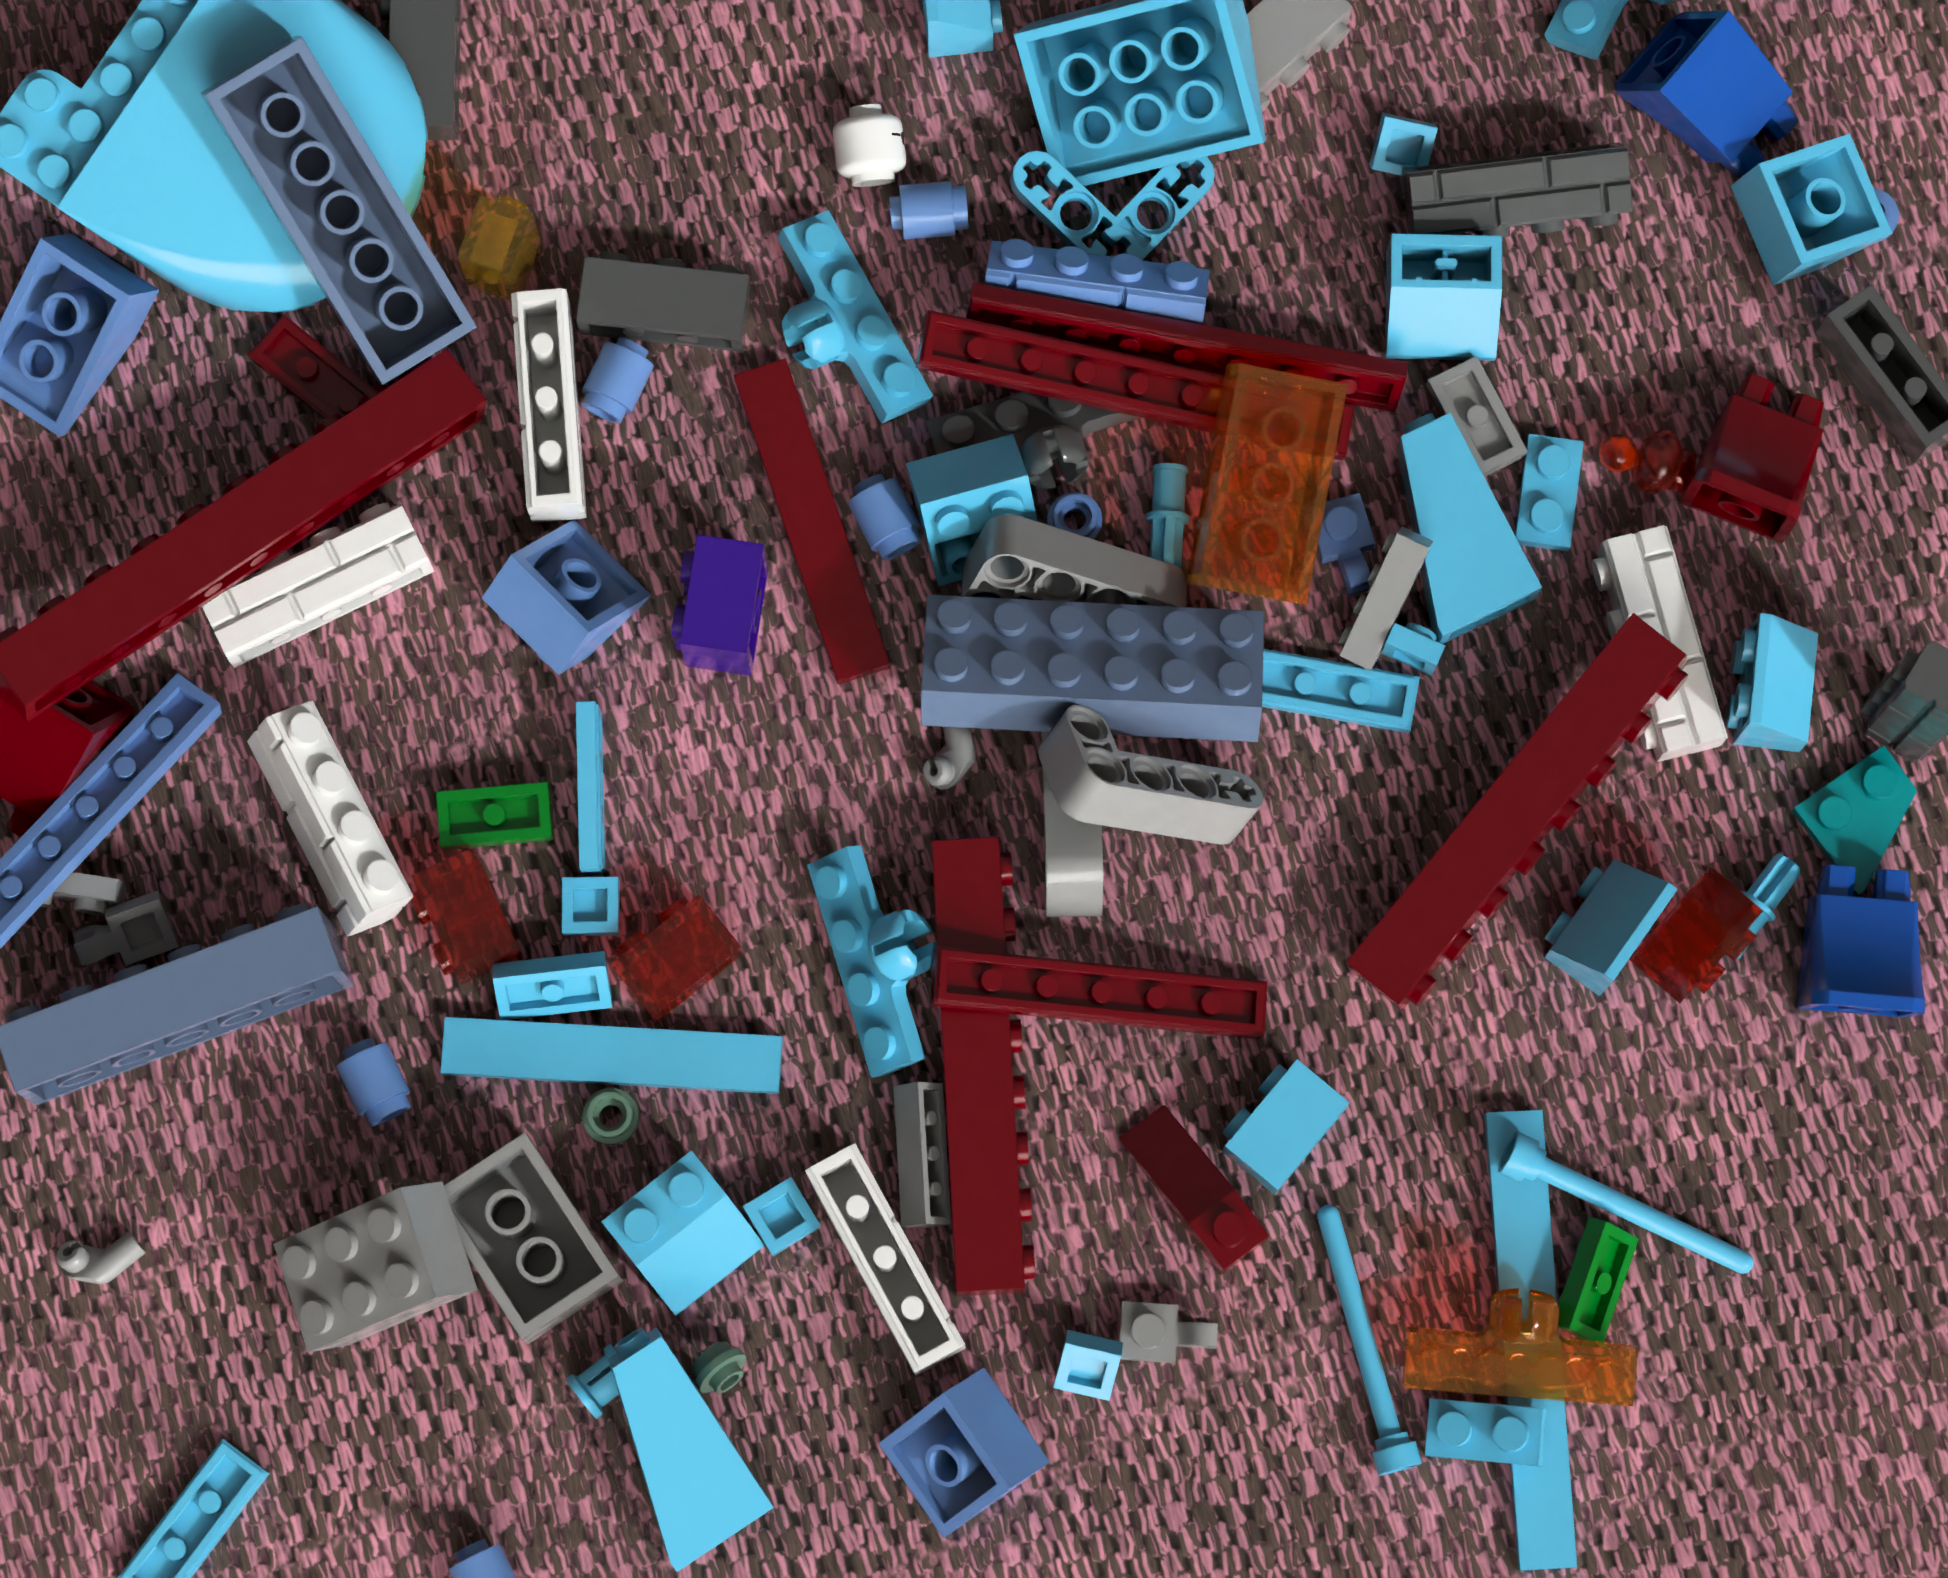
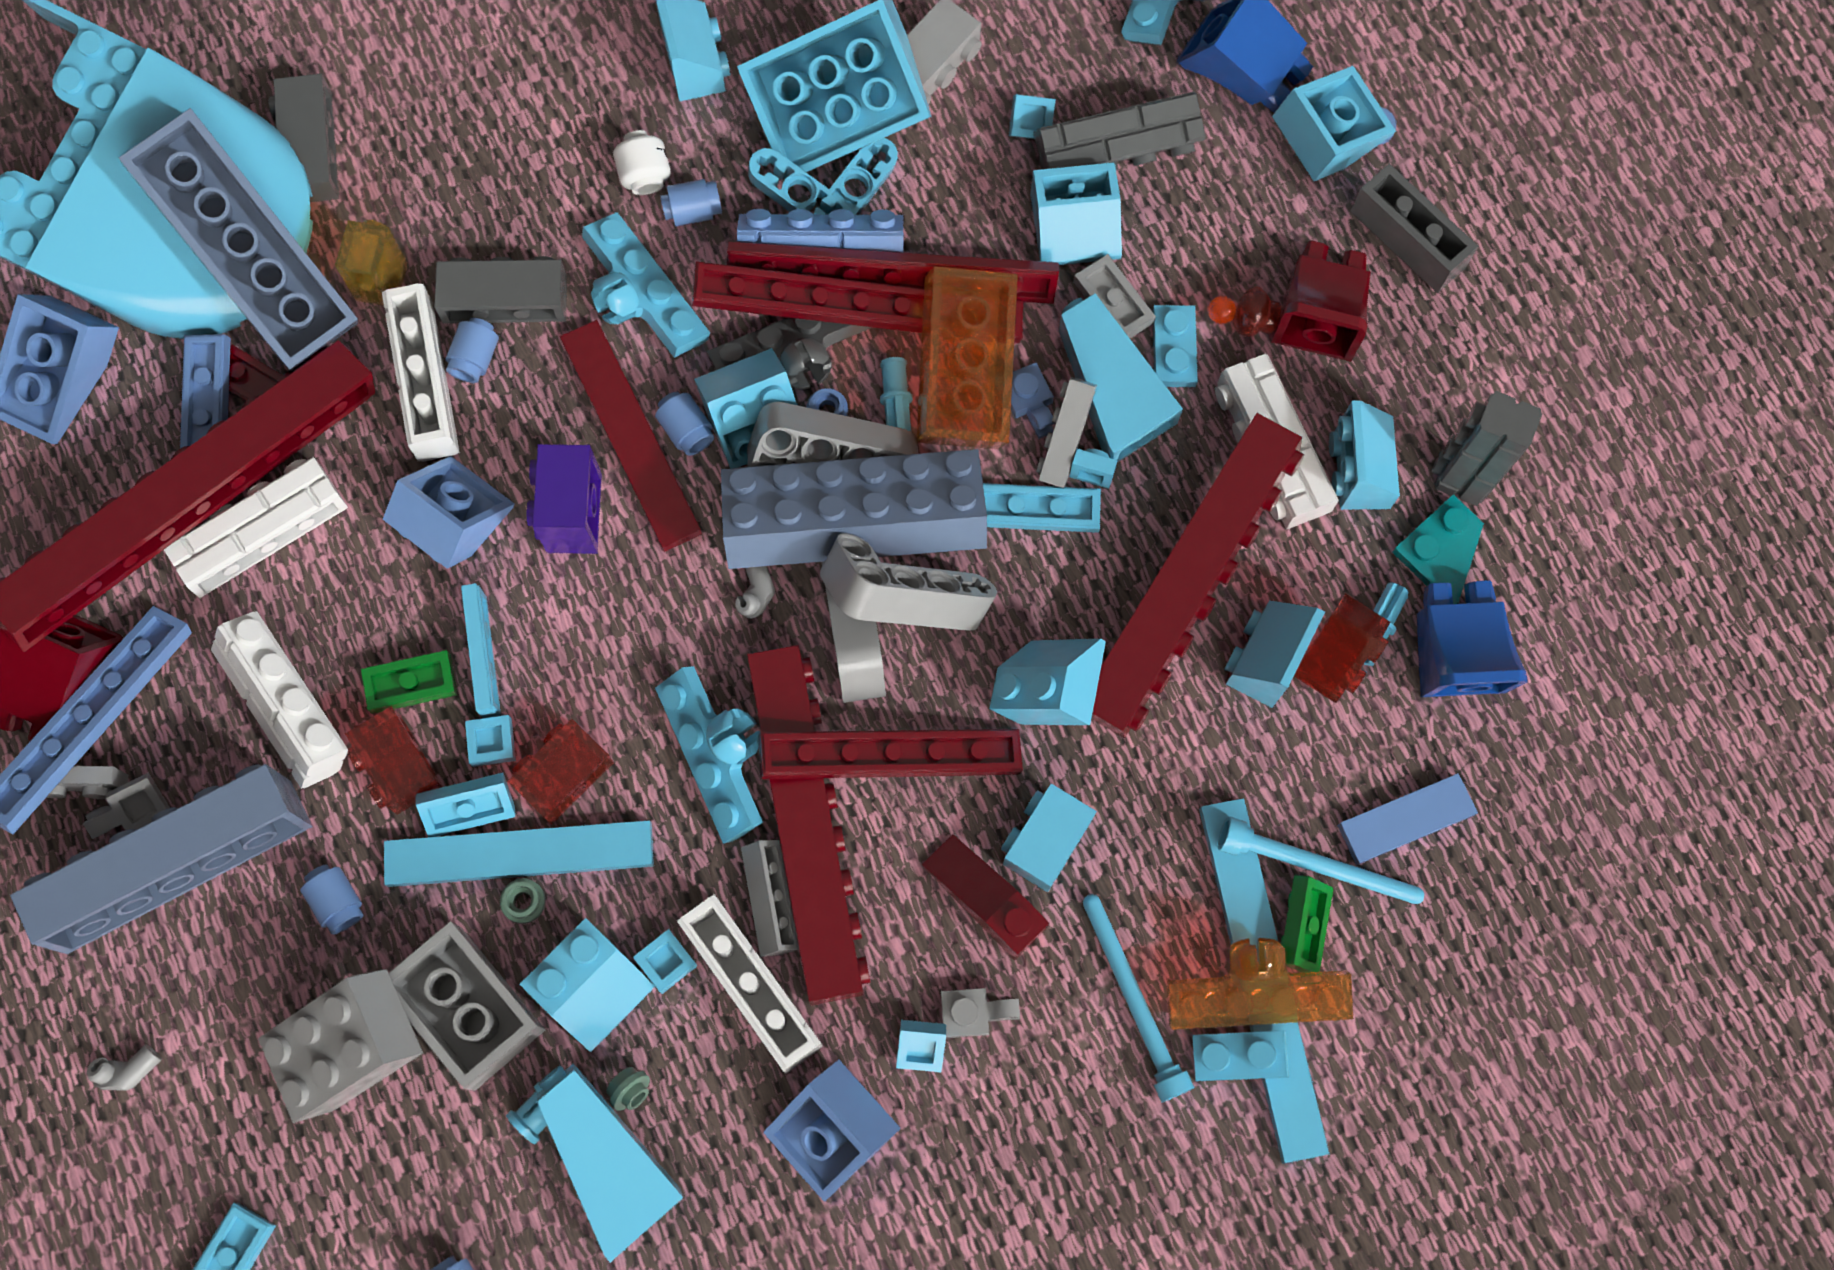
camera: 10 degrees left, 5 degrees down
(263, 393) = (204, 385): none -> medium blue tile
(1314, 927) = (1049, 682): none -> medium azure slope
(1749, 1164) = (1407, 819): none -> medium blue tile

